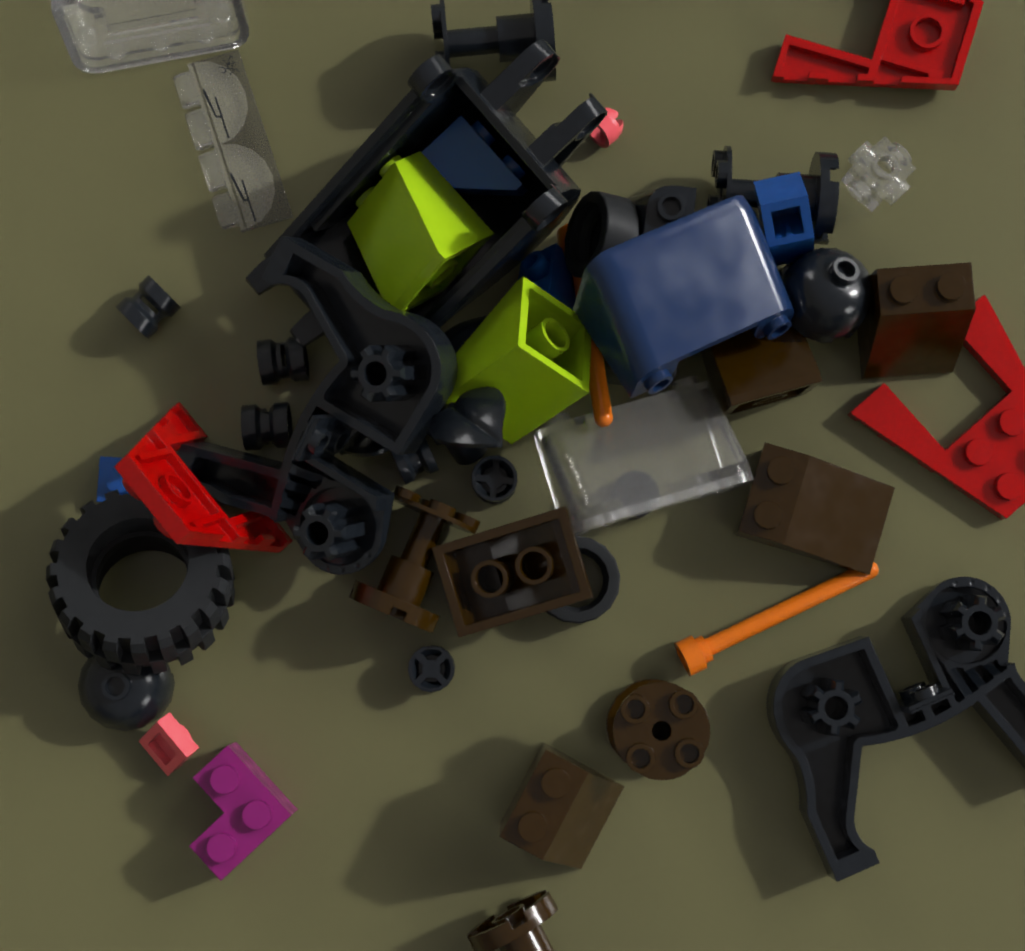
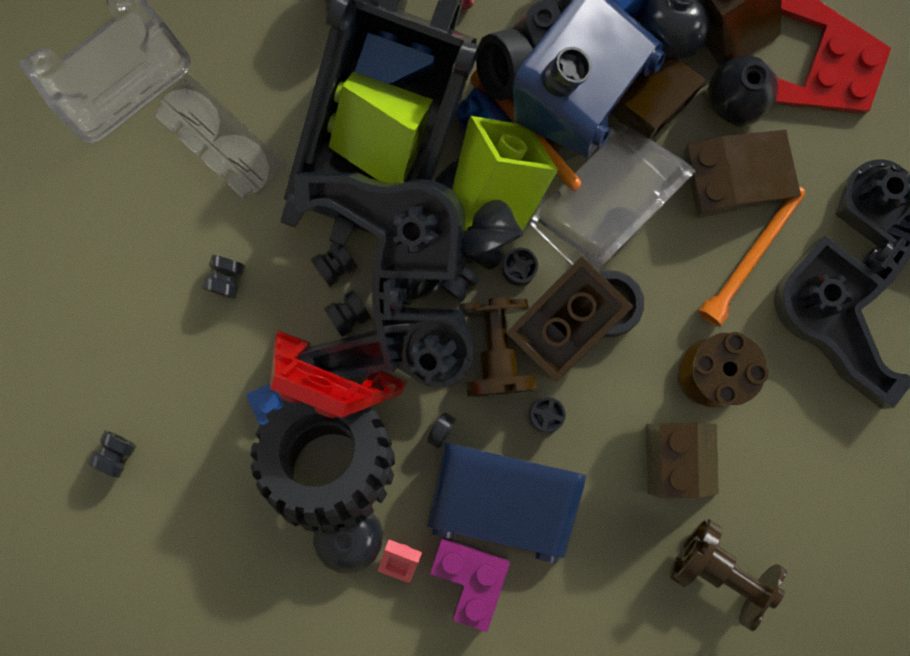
camera: 25 degrees left, 0 degrees up
(300, 619) = (441, 430): none -> black tile
(326, 741) = (505, 501): none -> dark blue windscreen
(662, 283) = (566, 71): none -> black wheel
(851, 422) = (735, 97): none -> black piece

